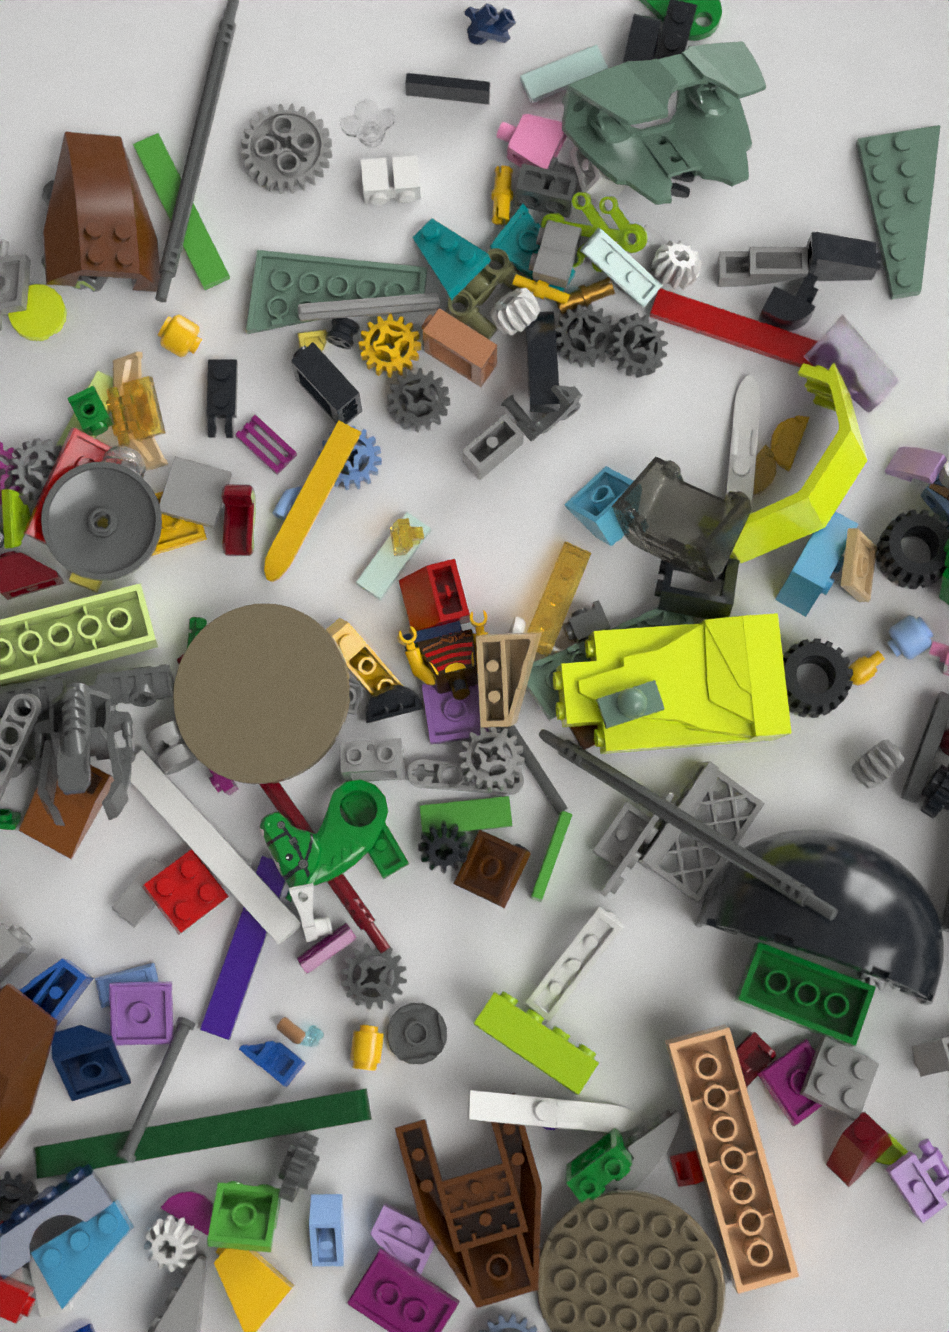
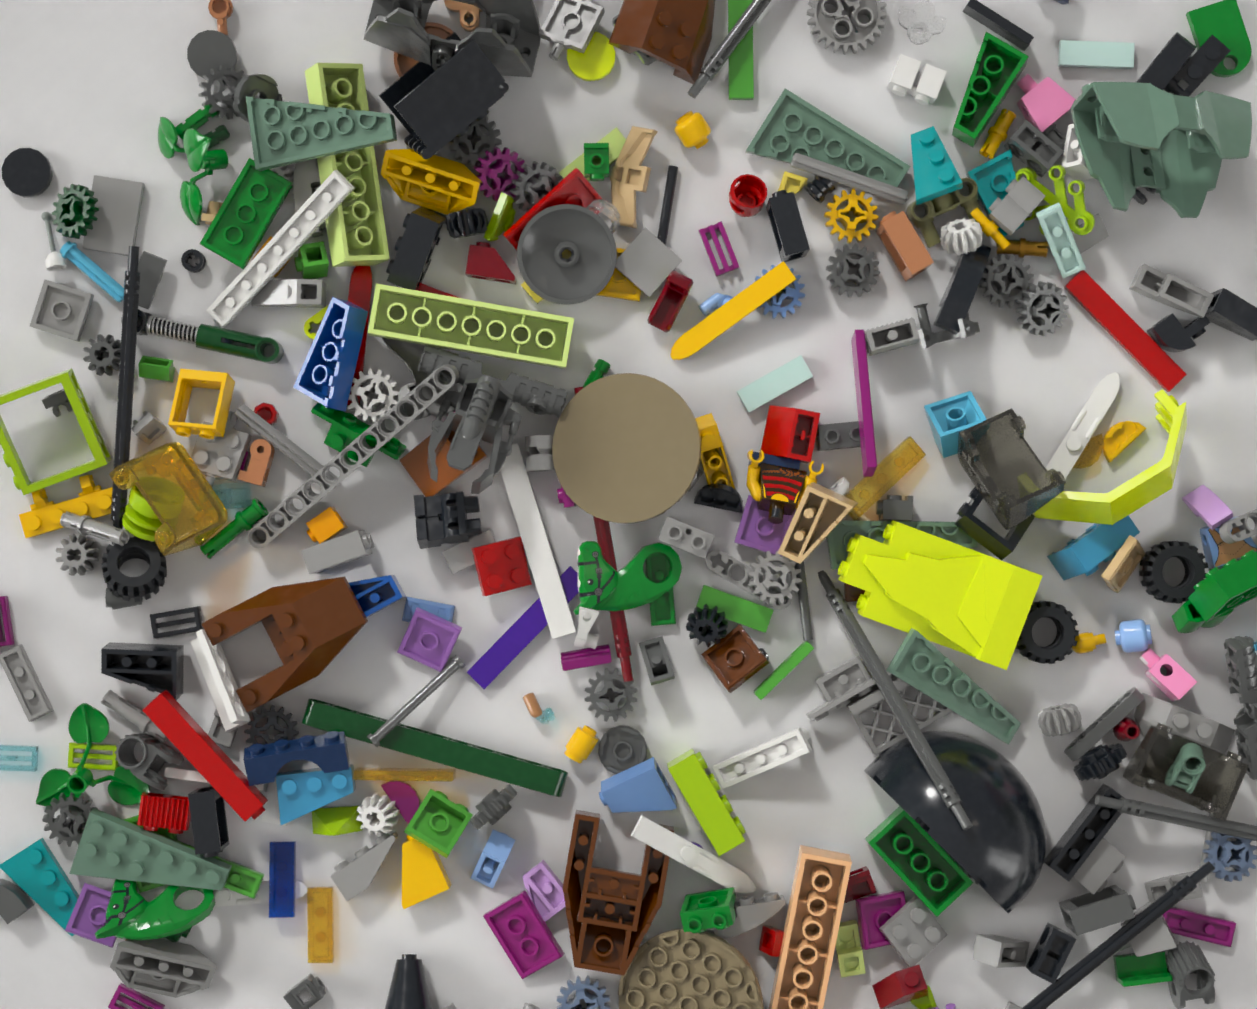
camera: 25 degrees right, 10 degrees up
(88, 1062) = (375, 656): dark blue slope -> none
(98, 869) = (452, 511): none -> black hips
(126, 1274) = (336, 820): none -> lime slope
(142, 407) = (637, 179): clear yellow plate -> none
(181, 1181) = (404, 774): none -> clear yellow tile
(188, 422) = (667, 203): none -> black bar
(222, 394) = (703, 192): black hinge -> none
(271, 373) = (748, 196): none -> red helmet
(275, 1059) = (511, 719): blue slope -> none
(404, 536) = (790, 376): clear yellow tile -> none
(406, 912) = (656, 660): none -> dark grey slope
(454, 1068) = (638, 789): none -> medium blue slope
(468, 150) = (991, 80): none -> green wedge
(492, 574) = (838, 436): none -> dark grey brick
(497, 526) = (864, 405): none -> magenta tile
(630, 704) = (897, 592): sand green tile -> none
(676, 264) = (1105, 258): white gear -> none
(721, 780) = (938, 677): none -> sand green wing
(779, 1135) = (849, 949): none -> yellowish green slope
(856, 361) = (1204, 408): clear purple wedge -> none

